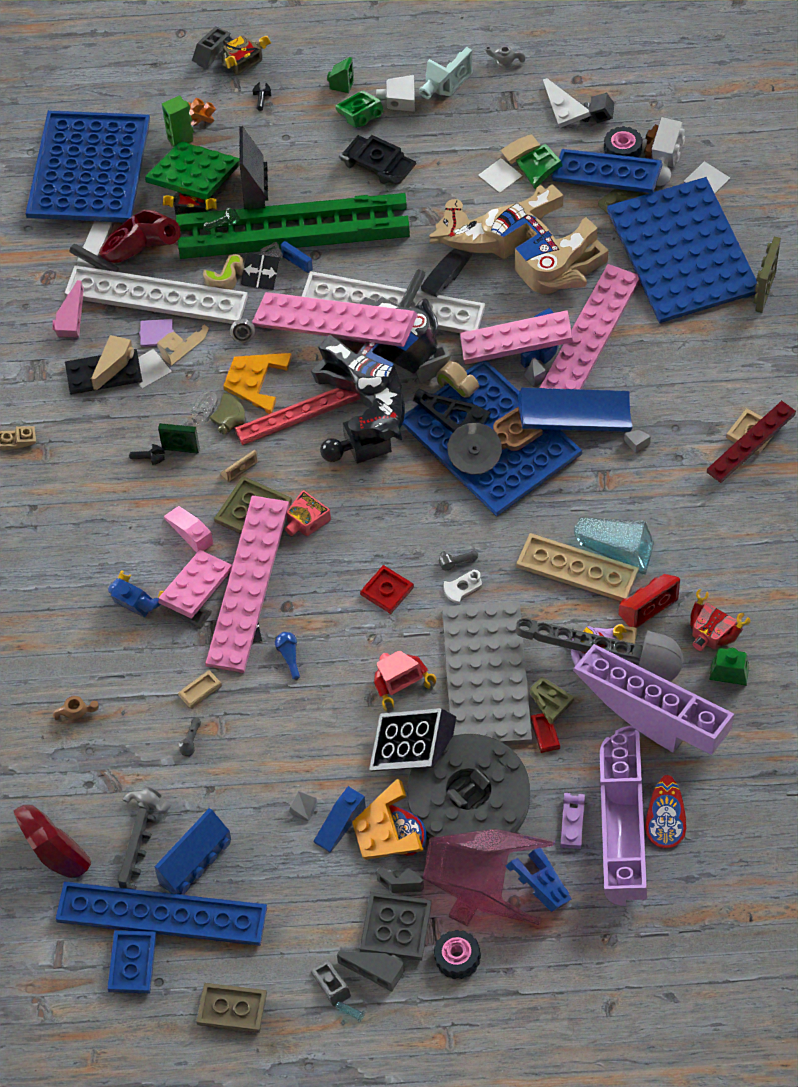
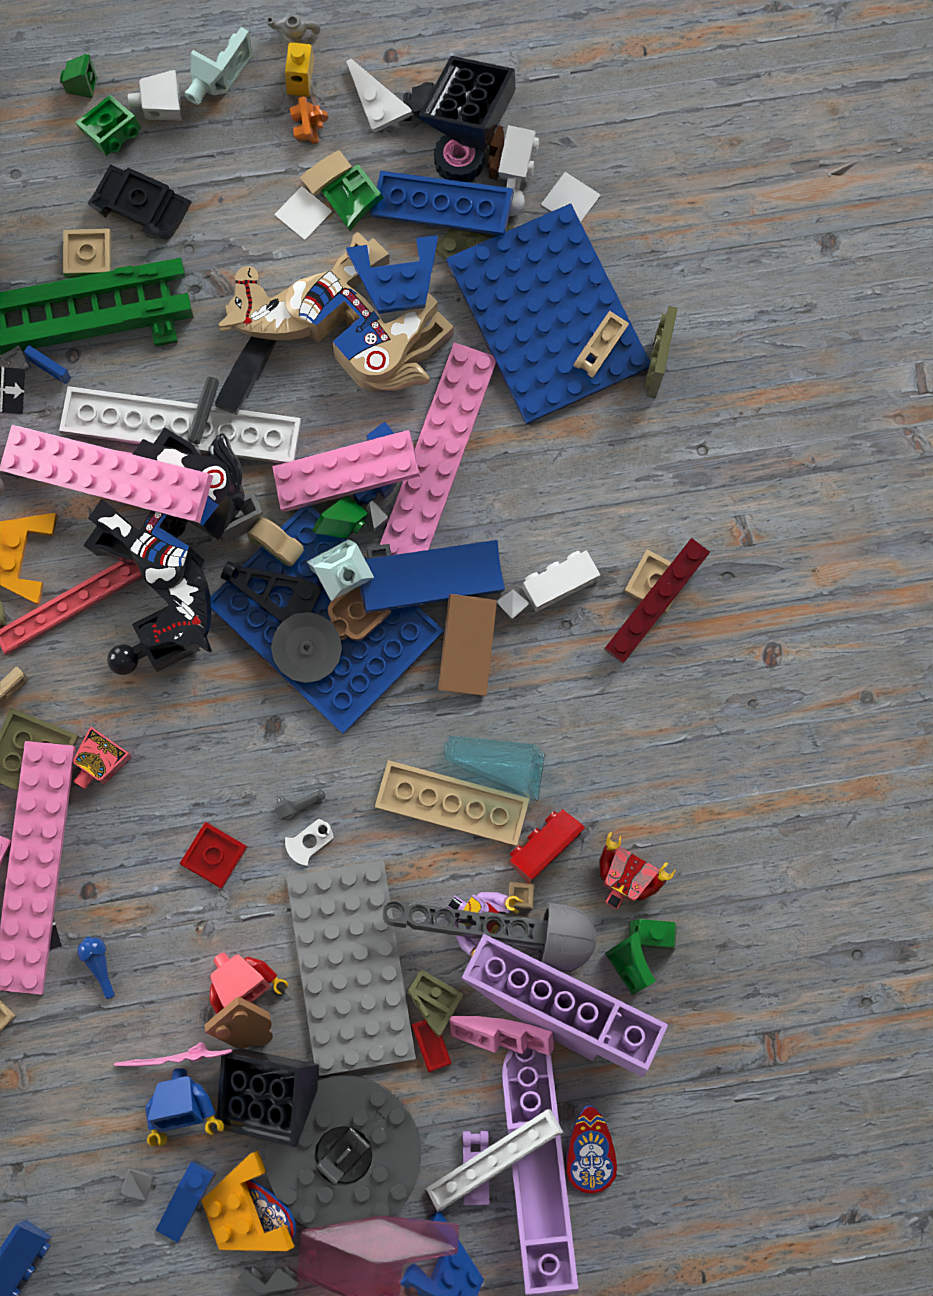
camera: 15 degrees left, 20 degrees up
(334, 186) = (86, 252): none -> tan plate
(341, 748) = (178, 1105): none -> blue torso
(358, 716) = (194, 1054): none -> bright pink piece
(386, 243) = (163, 332): none -> green tile
(396, 695) = (241, 1024): none -> medium nougat plate
(506, 394) = (341, 569): none -> light aqua plate
(508, 73) = (300, 63): none -> yellow torso
(509, 369) = (341, 519): none -> green slope
(512, 114) = (311, 118): none -> orange hips
(567, 214) = (397, 285): none -> blue wing
(589, 803) = (494, 1160): none -> white tile
(599, 460) = (467, 645): none -> medium nougat tile
(601, 722) = (496, 1032): none -> bright pink slope
(635, 106) = (469, 100): none -> black slope
(676, 425) = (560, 580): none -> white brick
(708, 681) = (630, 964): none -> green plate
(721, 268) = (601, 343): none -> tan plate

